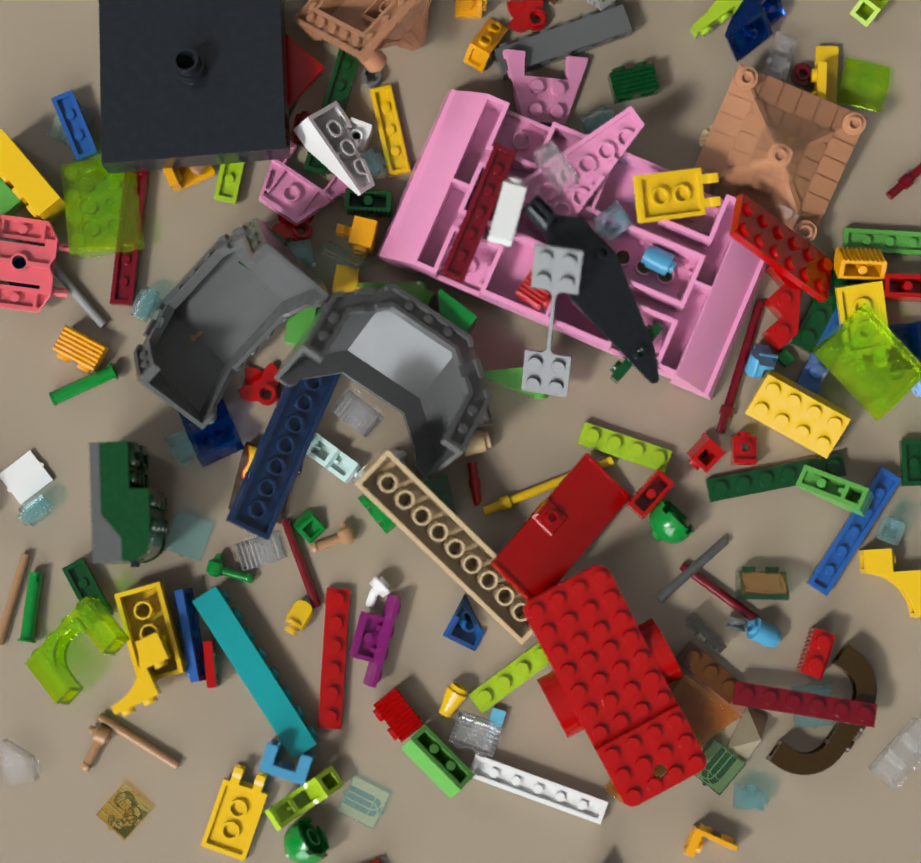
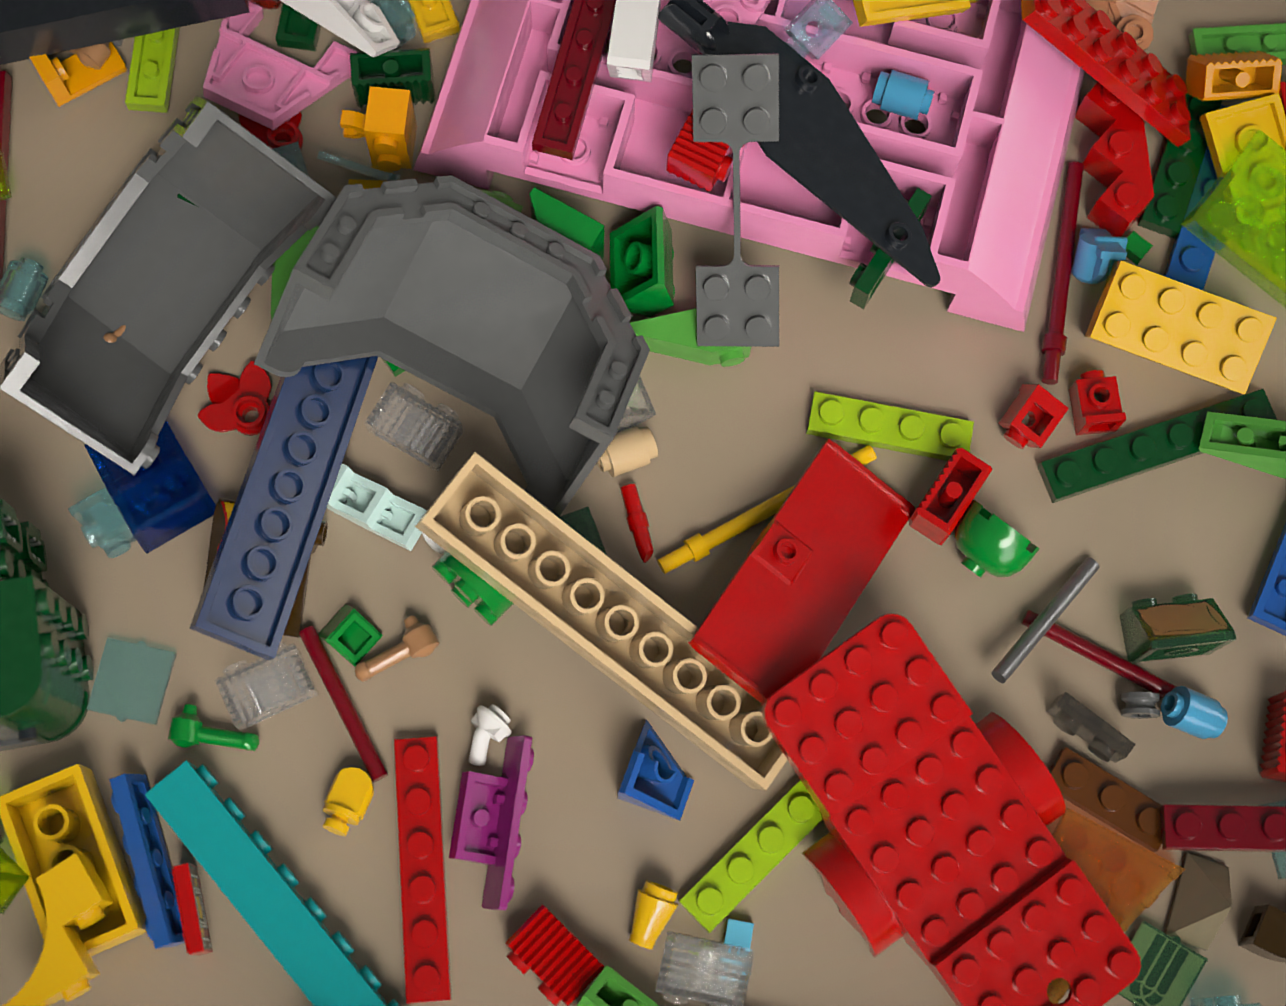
camera: 15 degrees left, 10 degrees down
(497, 337) = (643, 263): none -> green slope

